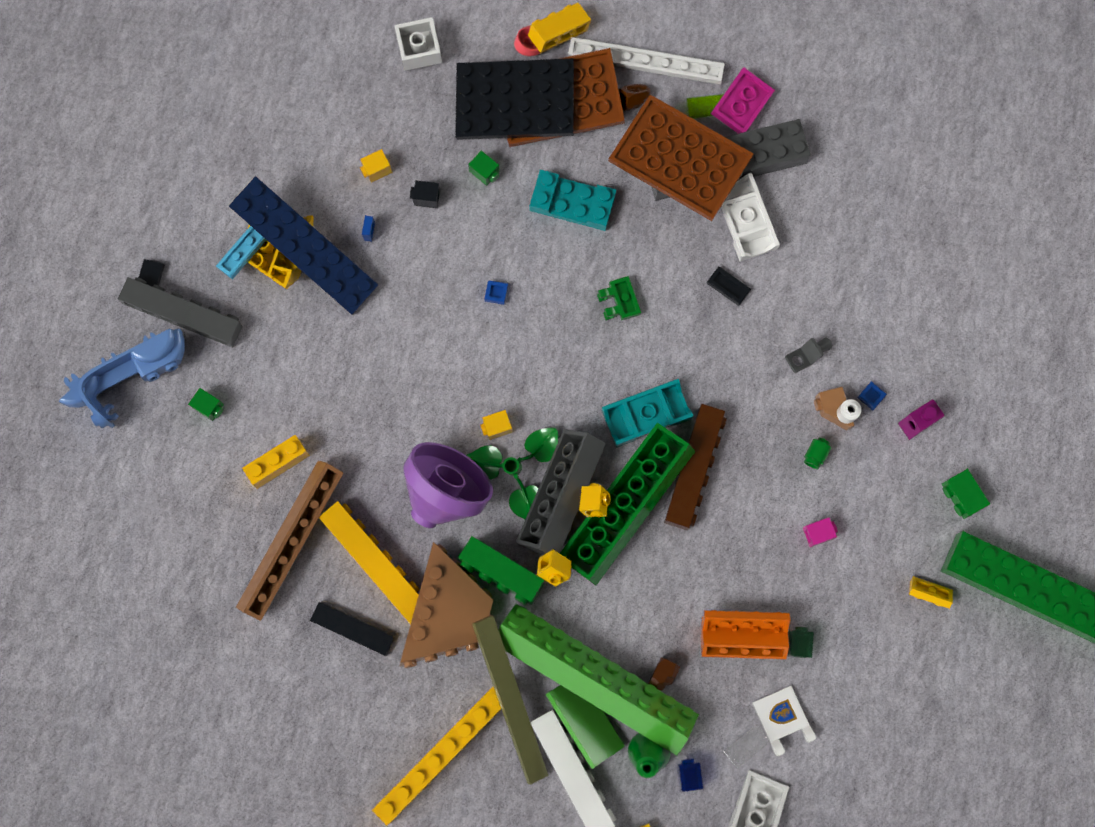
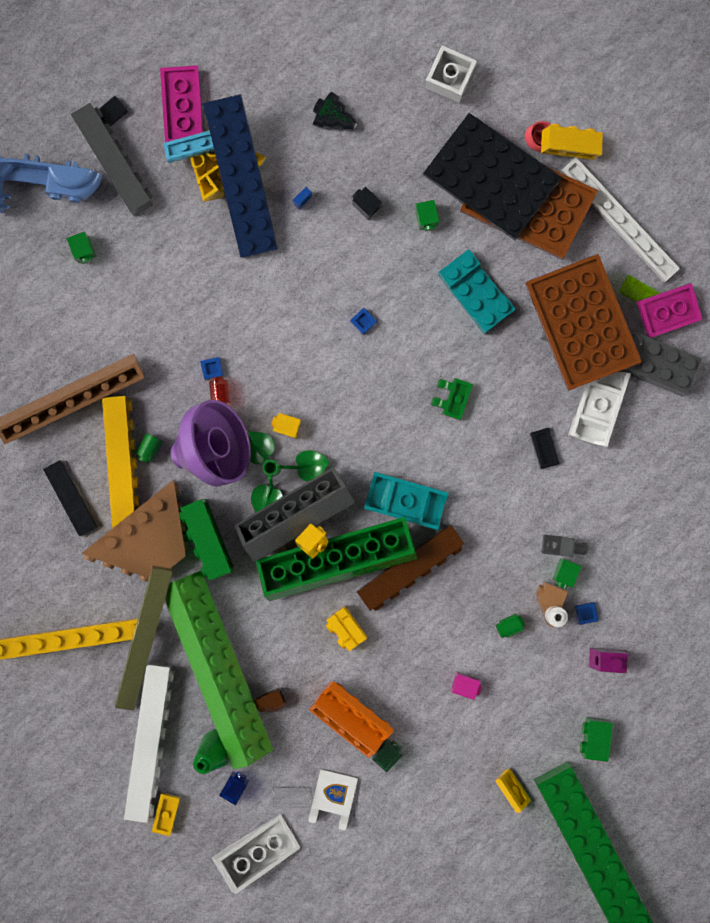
camera: 35 degrees right, 10 degrees up
(205, 223) = (181, 102): none -> dark pink plate
(275, 461) = (101, 331): yellow brick -> none
(343, 144) = (332, 114): none -> black rock
(375, 166) = (344, 151): yellow brick -> none
(391, 532) = (149, 448): none -> green brick
(395, 425) = (211, 368): none -> blue tile
(415, 435) = (219, 389): none -> clear red brick
(554, 568) = (245, 568): yellow brick -> none
(586, 726) = (185, 700): bright green tile -> none
(633, 96) = (587, 242): reddish brown rock -> none
(680, 560) = (346, 628): none -> yellow brick
(828, 374) = (566, 573): none -> green brick

